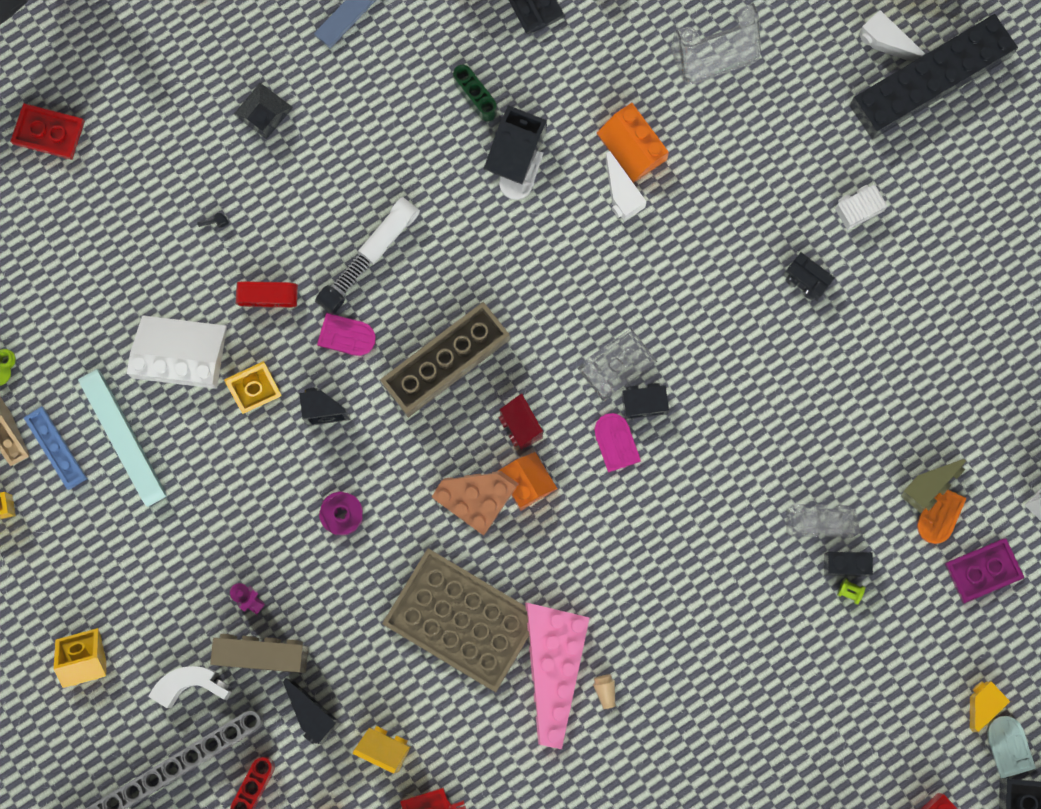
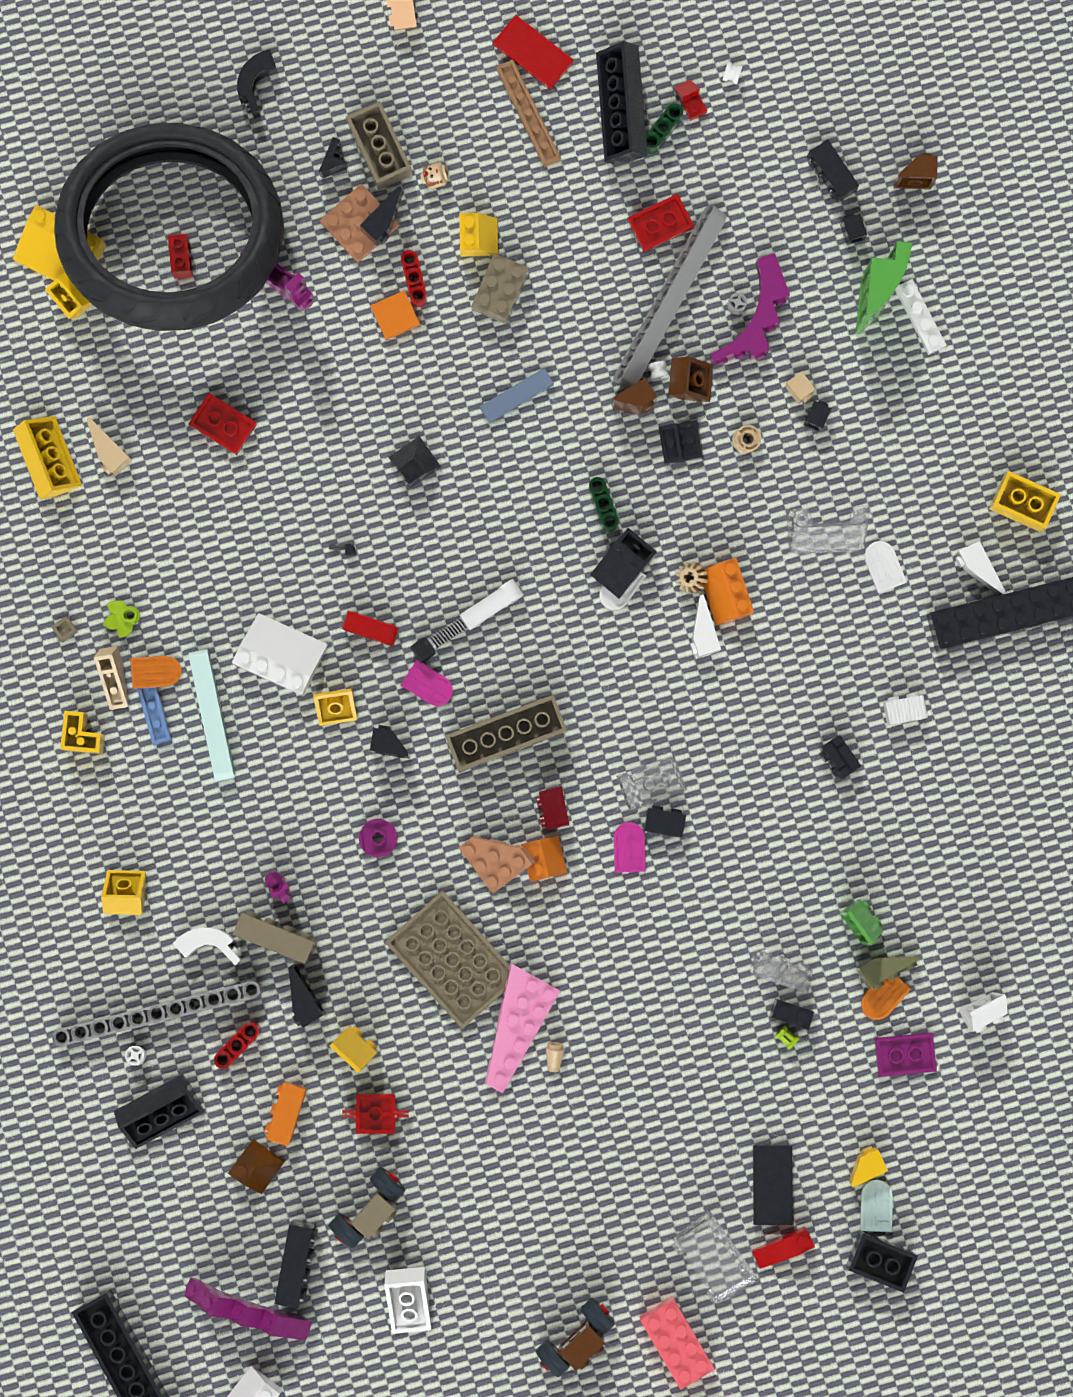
camera: 10 degrees right, 5 degrees up
(47, 410) = (154, 671): none -> orange window
(595, 145) = (693, 570): none -> tan gear
(788, 69) = (884, 566): none -> white window
(888, 758) = (772, 1185): none -> black tile
(890, 442) = (861, 922): none -> bright green slope

